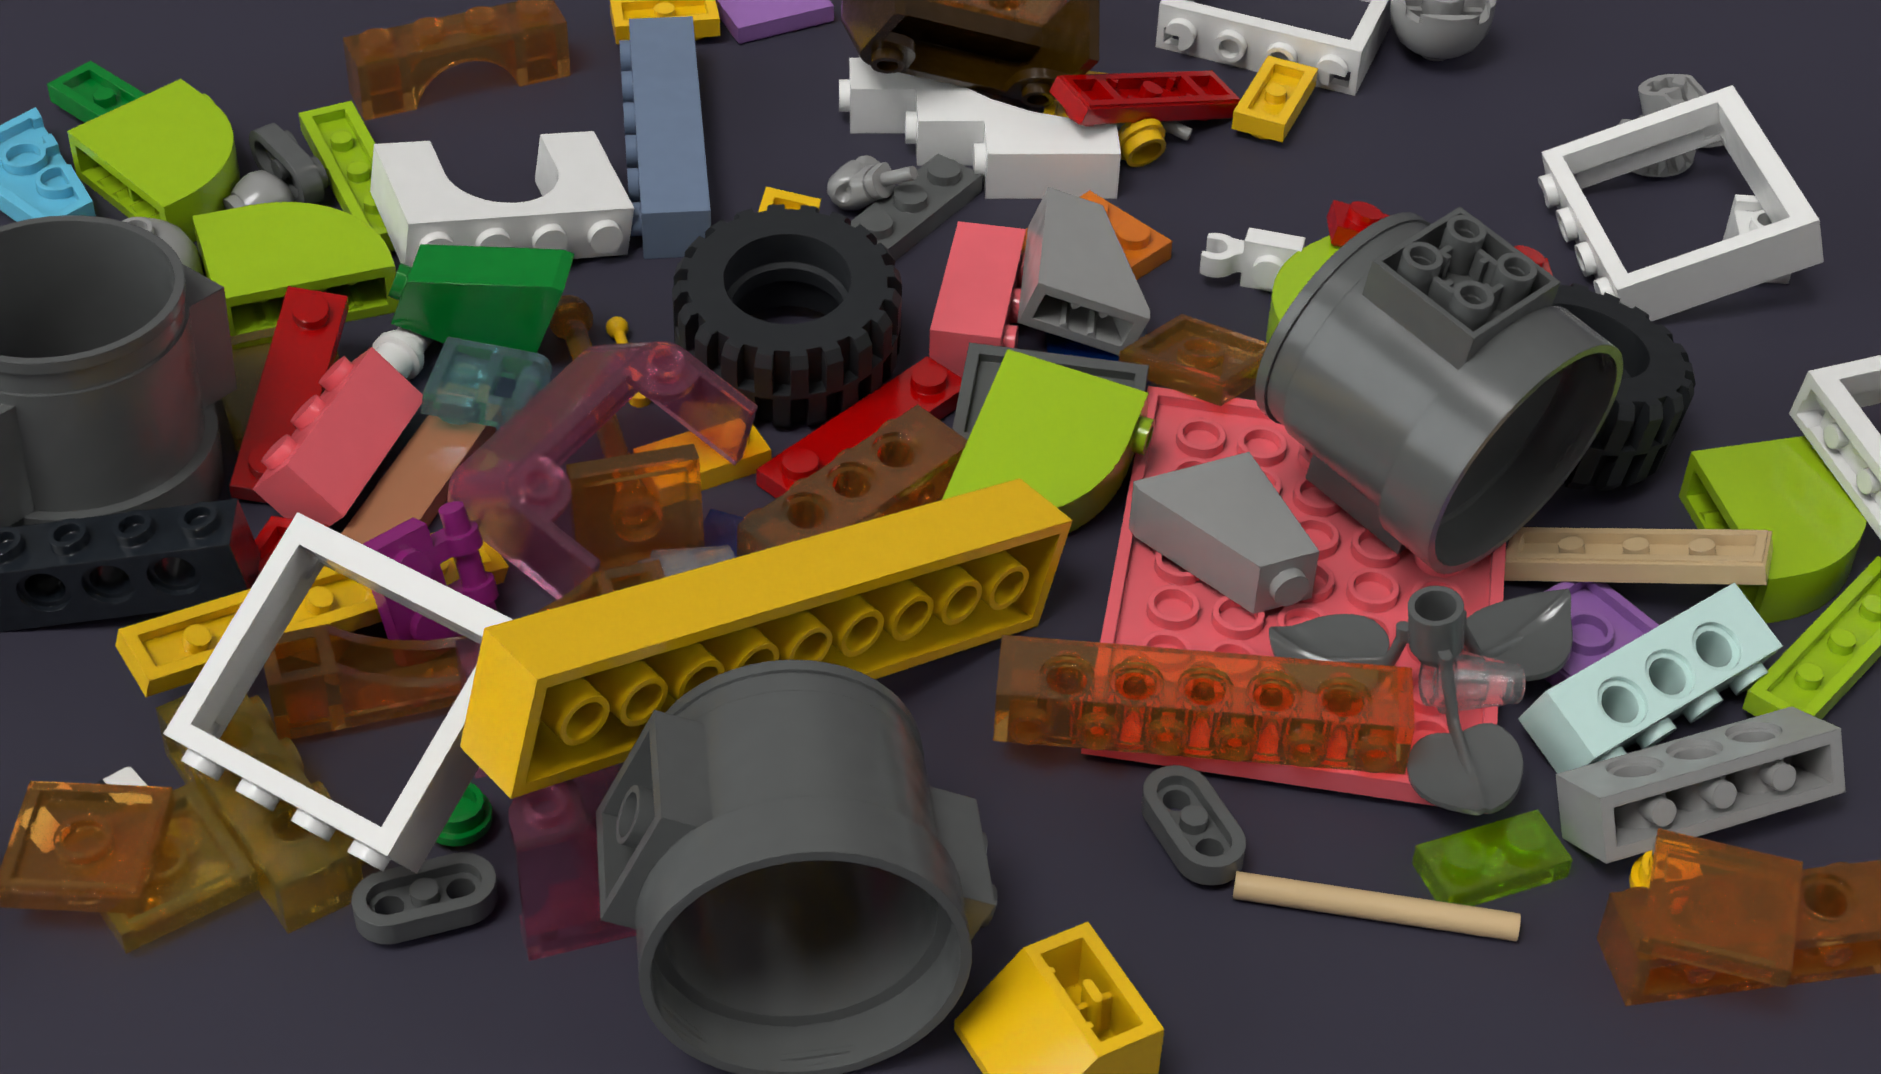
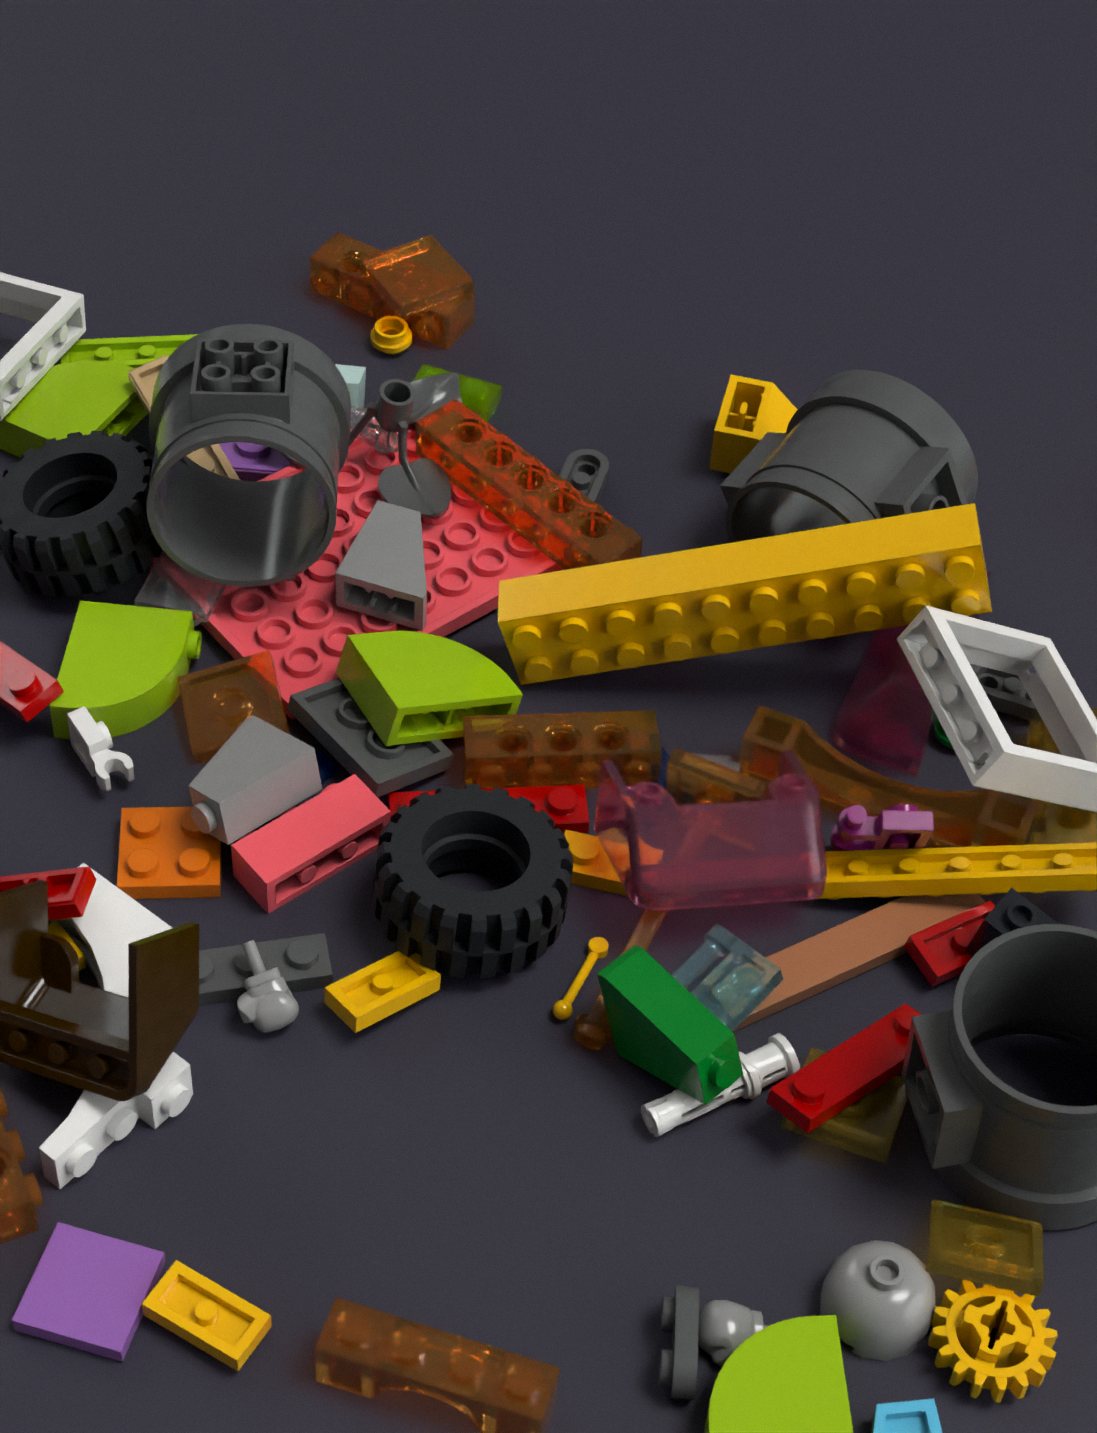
camera: 140 degrees left, 5 degrees up
(293, 244) = (765, 1214): lime brick -> none
(338, 439) = (854, 996): coral brick -> none
(346, 151) = (629, 1297): lime plate -> none
(578, 212) = (511, 1102): white arch -> none
(664, 135) = (348, 1162): sand blue brick -> none
(1377, 906) = (530, 407): tan bar -> none
(1700, 783) = (313, 321): light grey brick -> none

